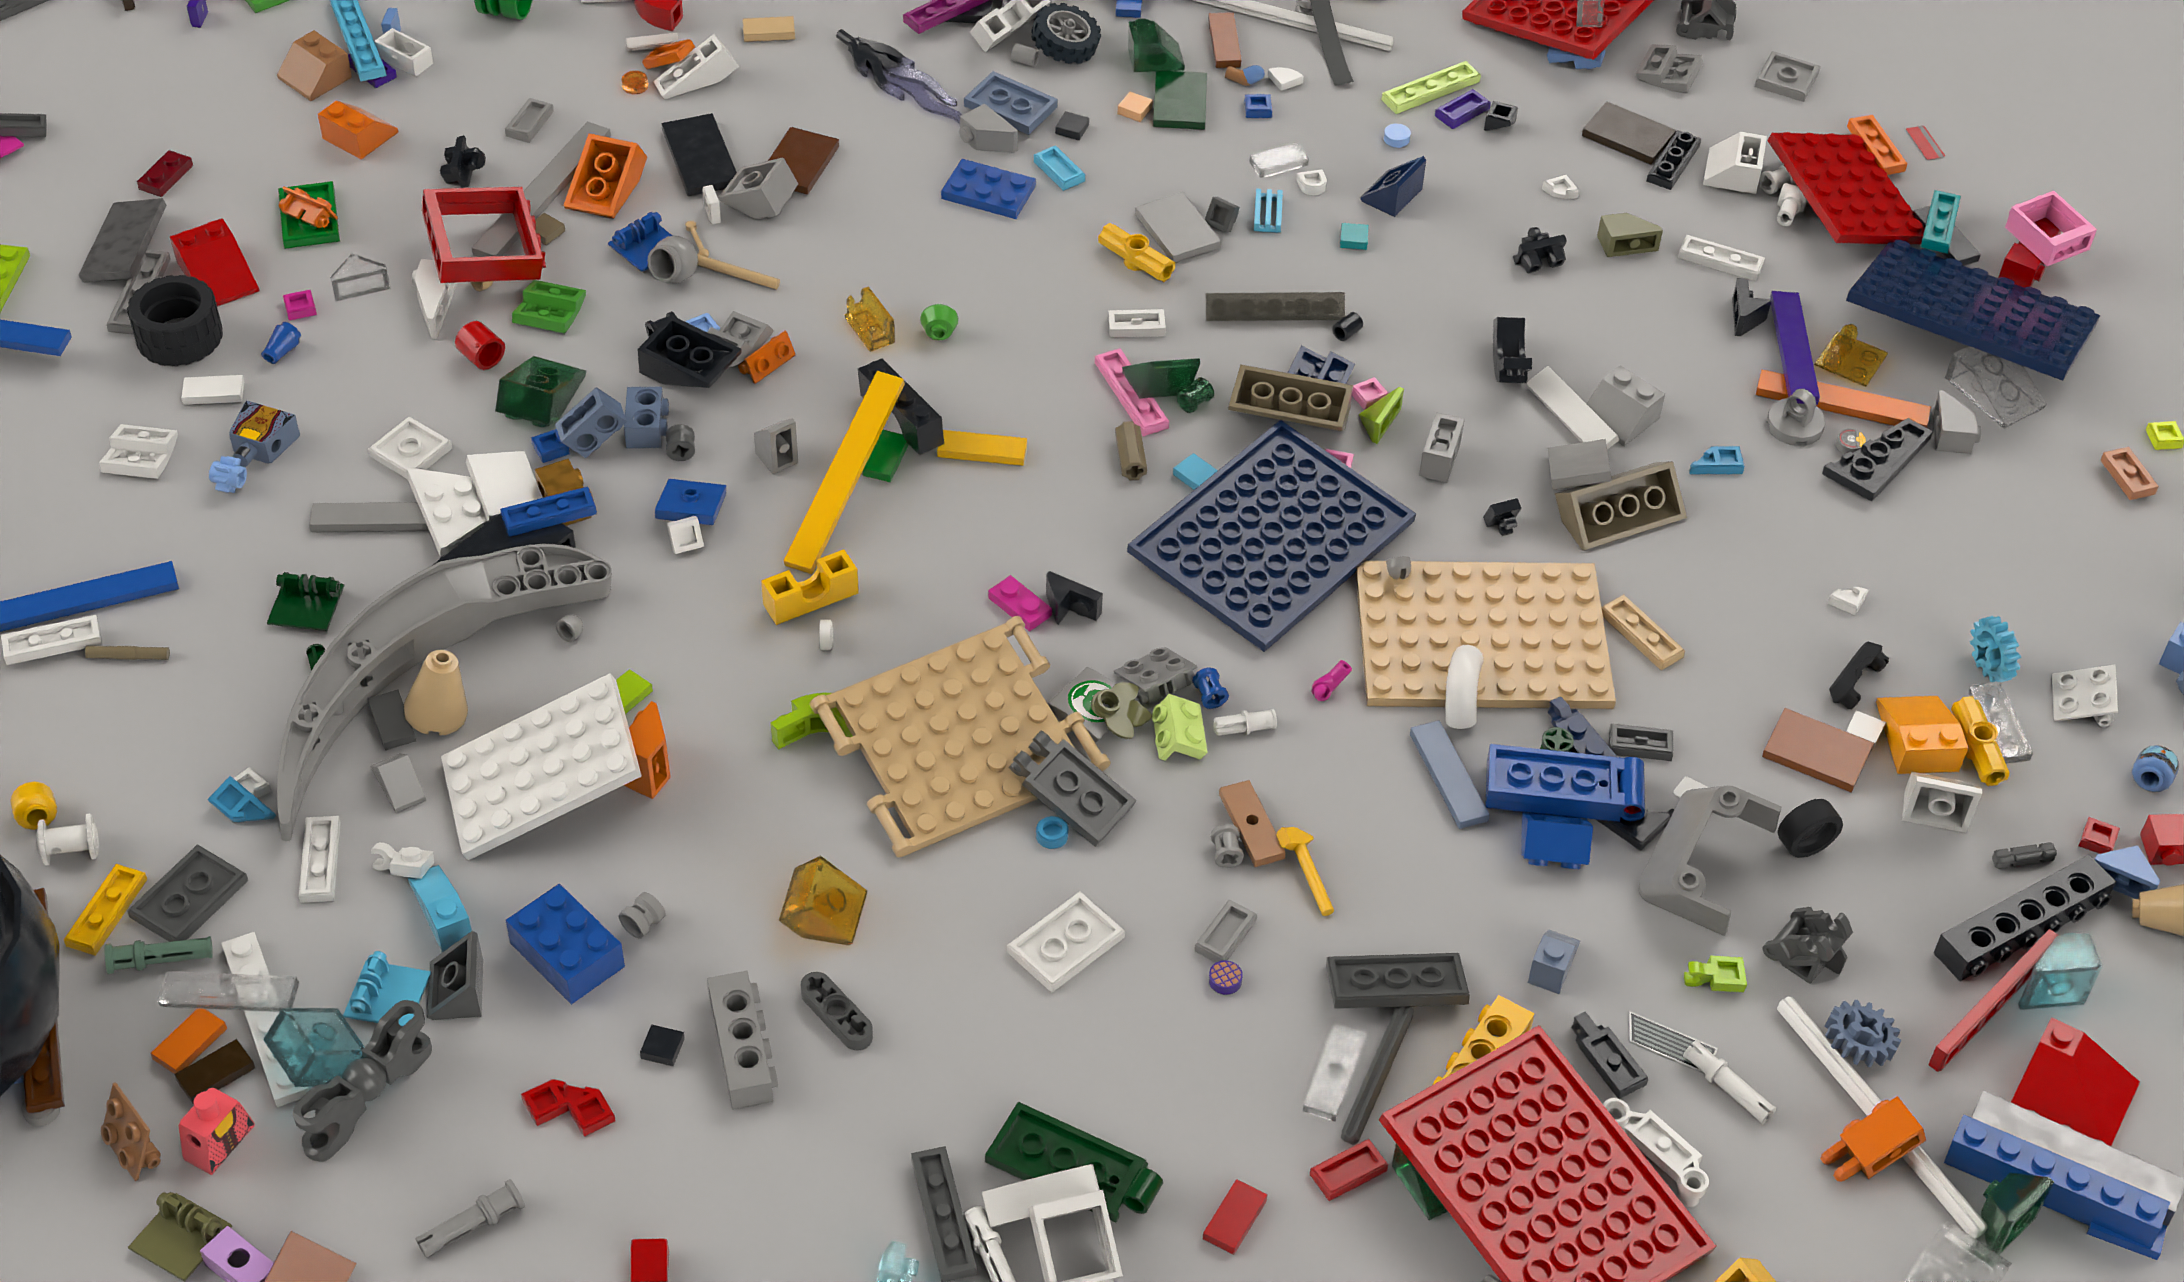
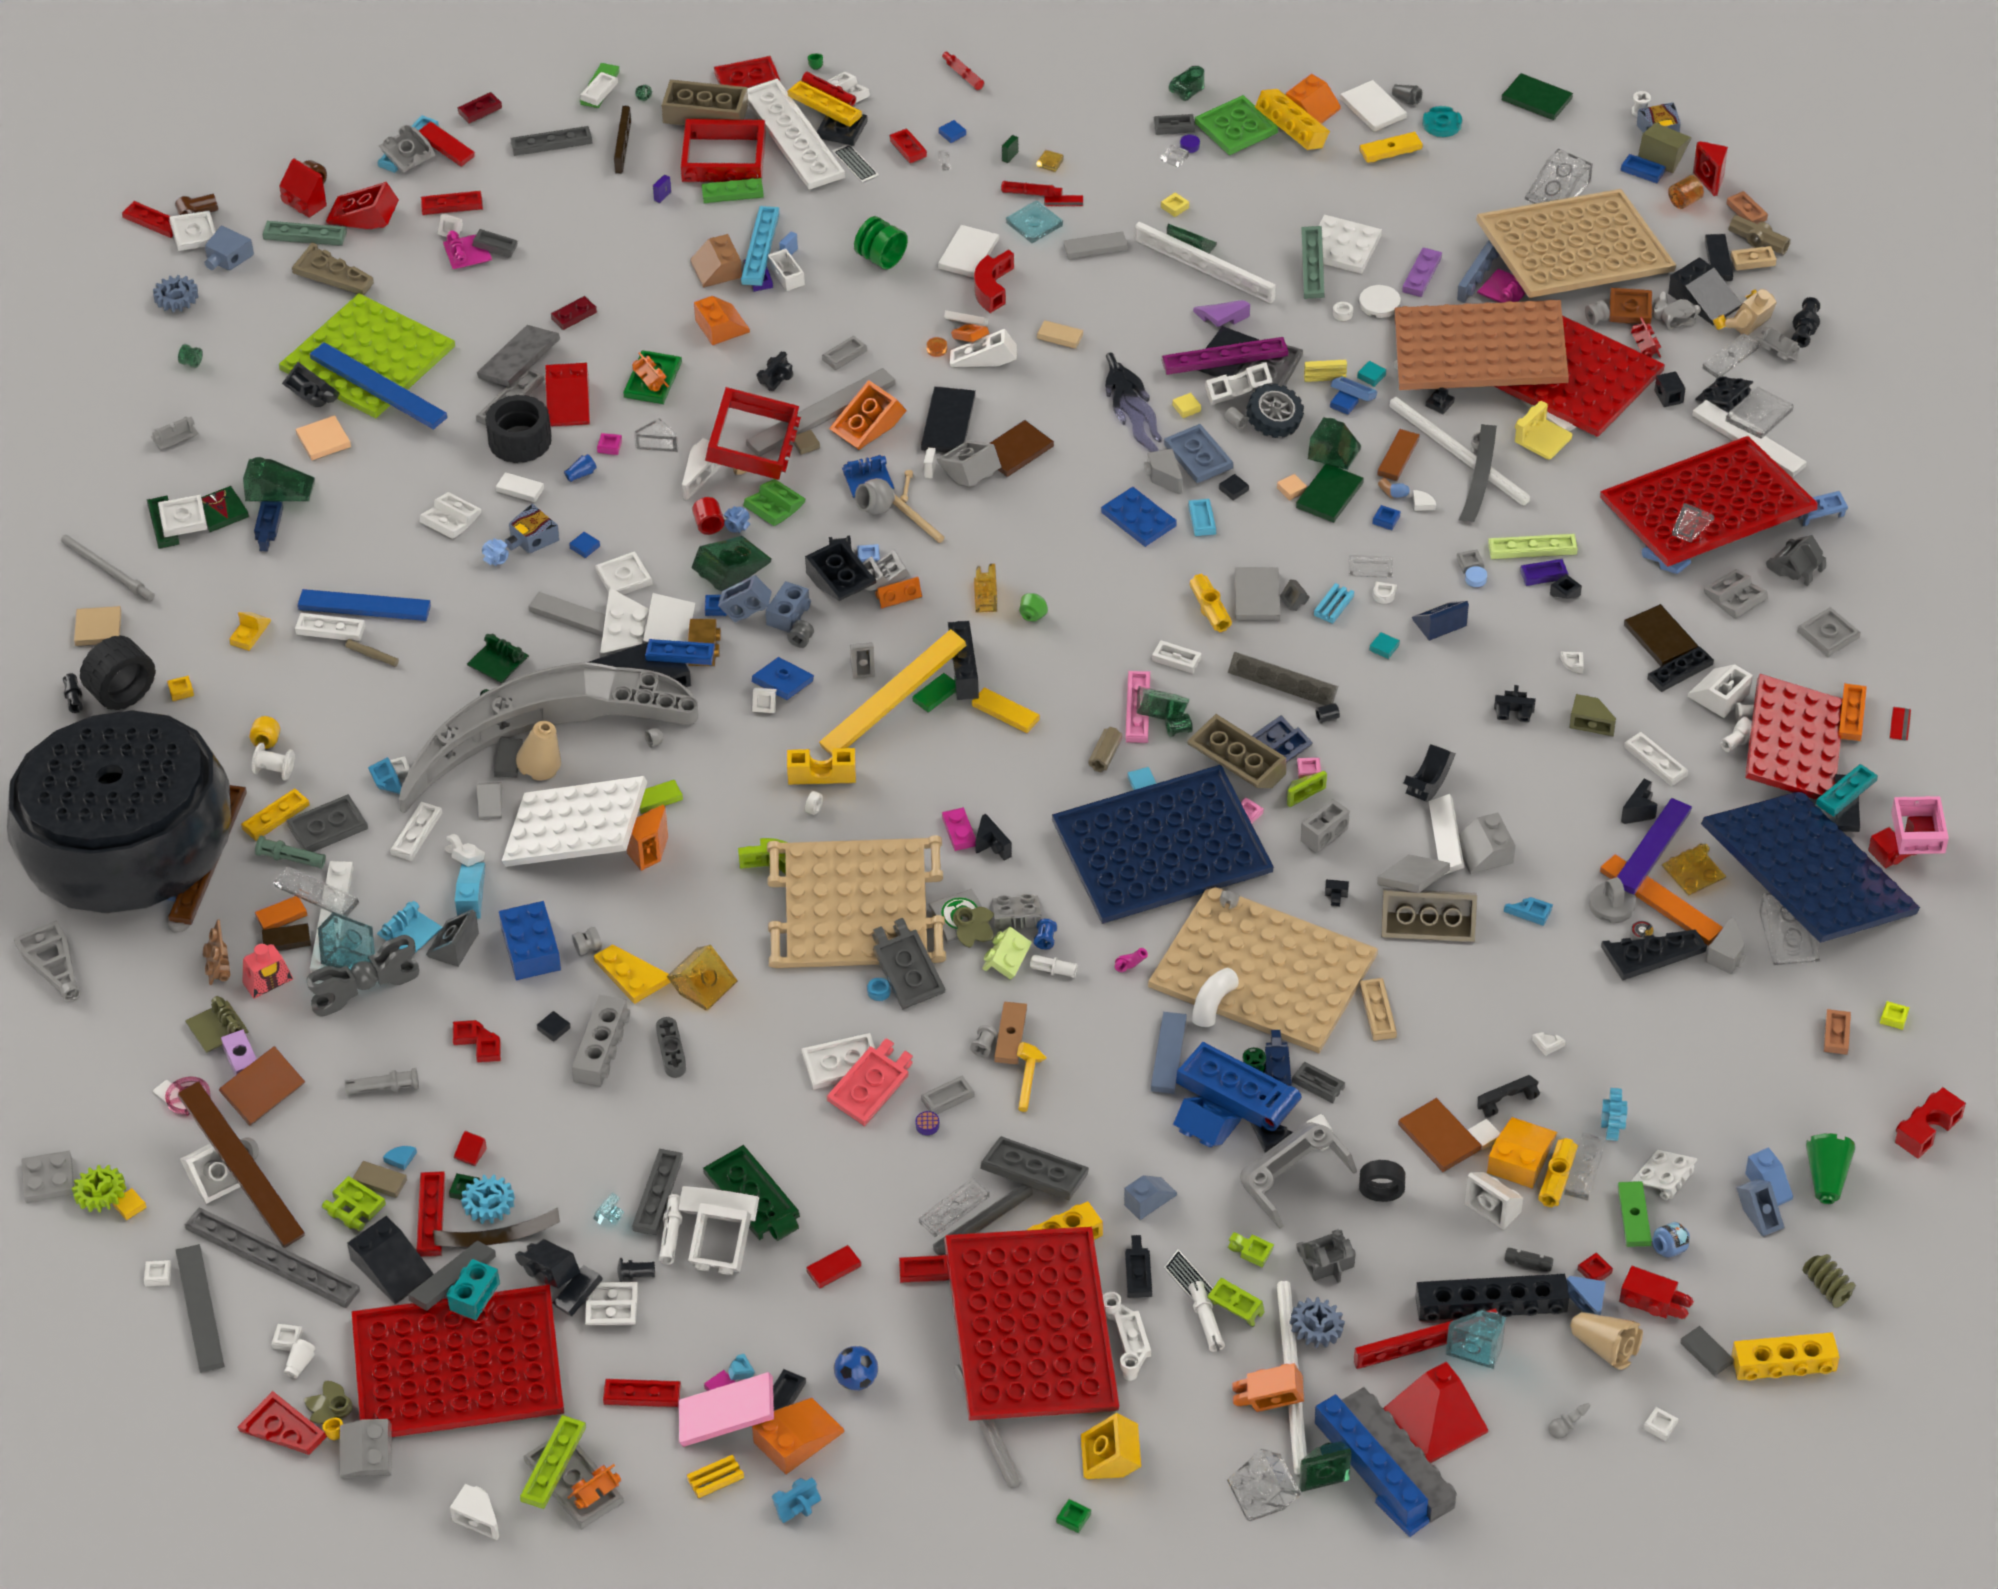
camera: 30 degrees right, 0 degrees up
(338, 429) = (584, 544): none -> blue tile
(518, 338) = (736, 519): none -> medium blue gear
(722, 935) = (631, 974): none -> yellow wing
(960, 59) = (1186, 405): none -> light yellow tile
(1124, 955) = (870, 1082): none -> coral tile
(1377, 121) = (1469, 559): none -> light grey tile
(1755, 1046) = (1236, 1301): none -> lime hinge
(2093, 755) = (1634, 1214): none -> bright green tile

